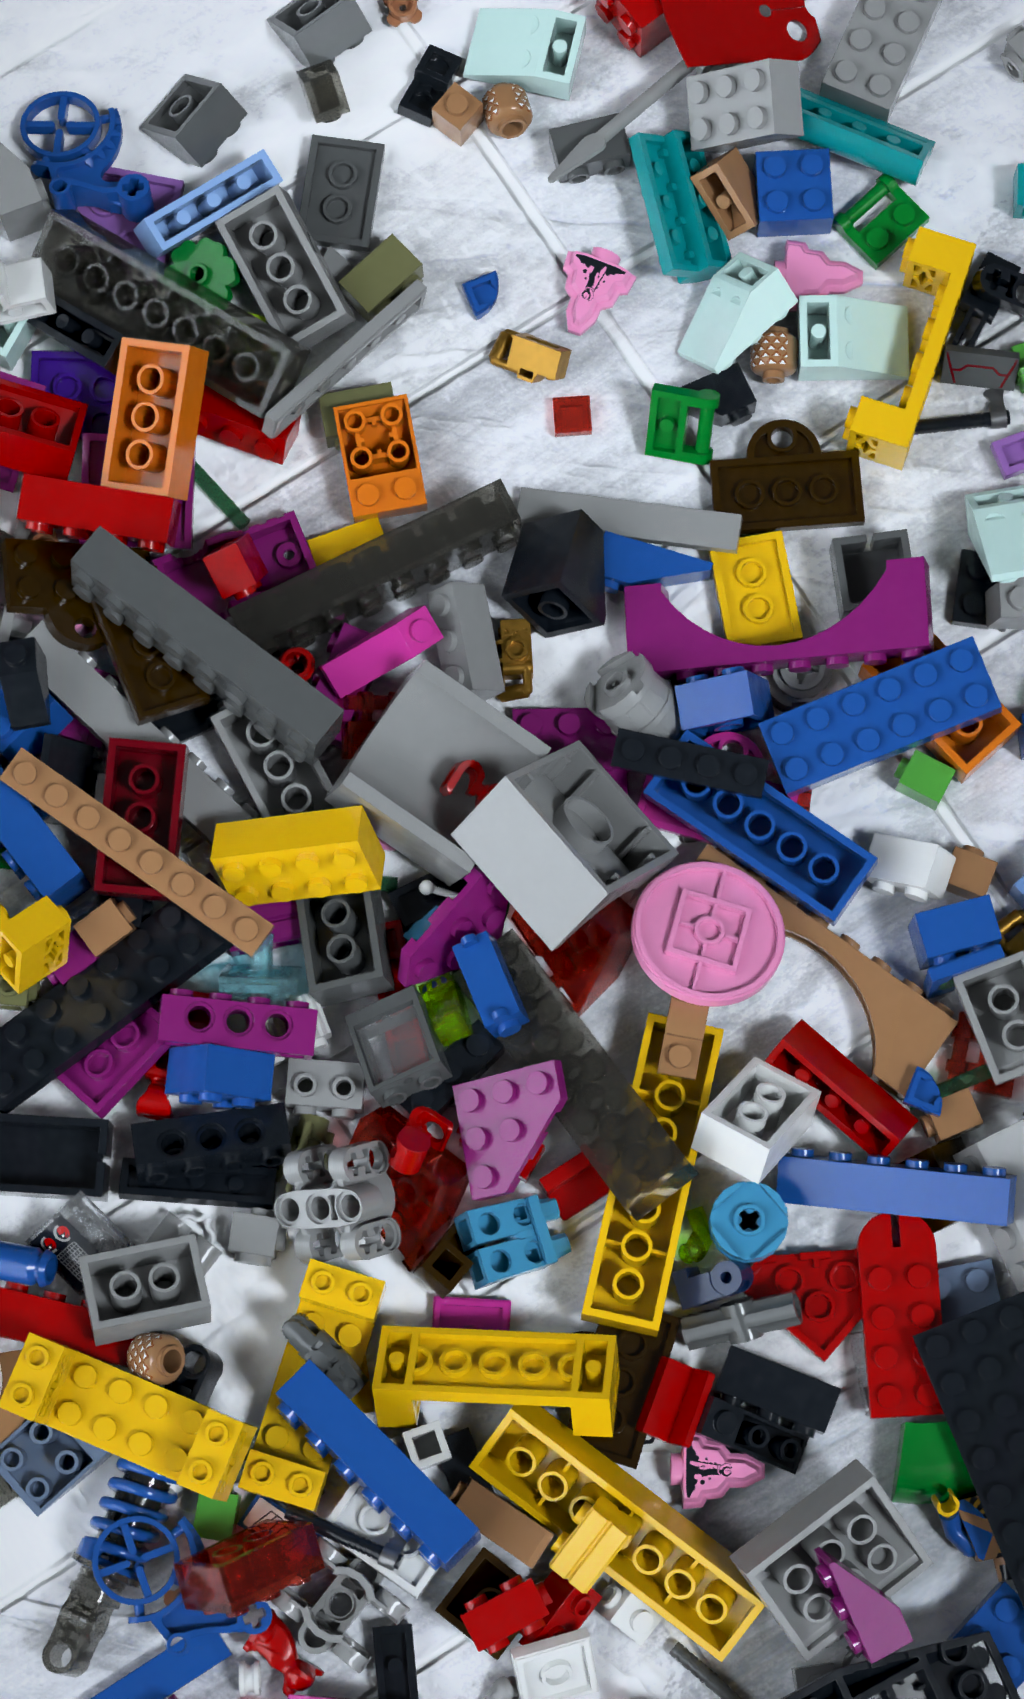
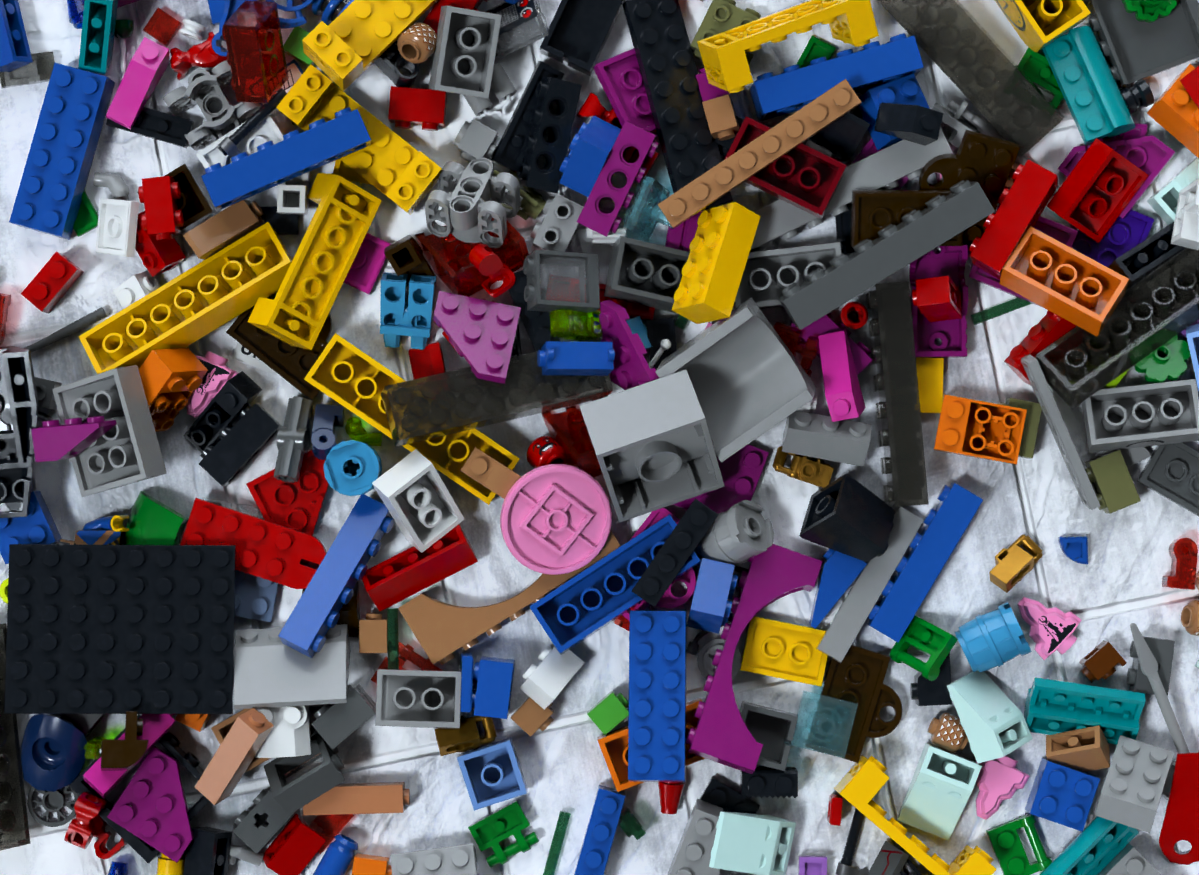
camera: 110 degrees right, 10 degrees up
(241, 1333) = (417, 107): none -> red brick
(325, 1353) = (377, 154): dark grey hinge -> none
(449, 158) = (1183, 565): none -> clear red leg
(475, 785) = (710, 406): red leg -> none
(571, 465) = (925, 561): none -> blue brick
(572, 416) = (961, 575): clear red tile -> none
(592, 1544) = (183, 281): yellow brick -> none
(610, 208) = (1101, 662): none -> reddish brown brick
(628, 986) = (545, 451): none -> red head
(636, 344) = (992, 639): none -> dark azure piece
(675, 1402) = (257, 374): red panel -> none
(728, 1511) = (168, 382): none -> orange slope
(826, 505) = (824, 724): none -> clear light blue plate
(924, 1093) = (393, 621): blue tile -> none
(927, 455) = (835, 809): none -> red tile
(930, 541) = (769, 782): none -> black brick
(1001, 662) = (670, 796): none -> red cone

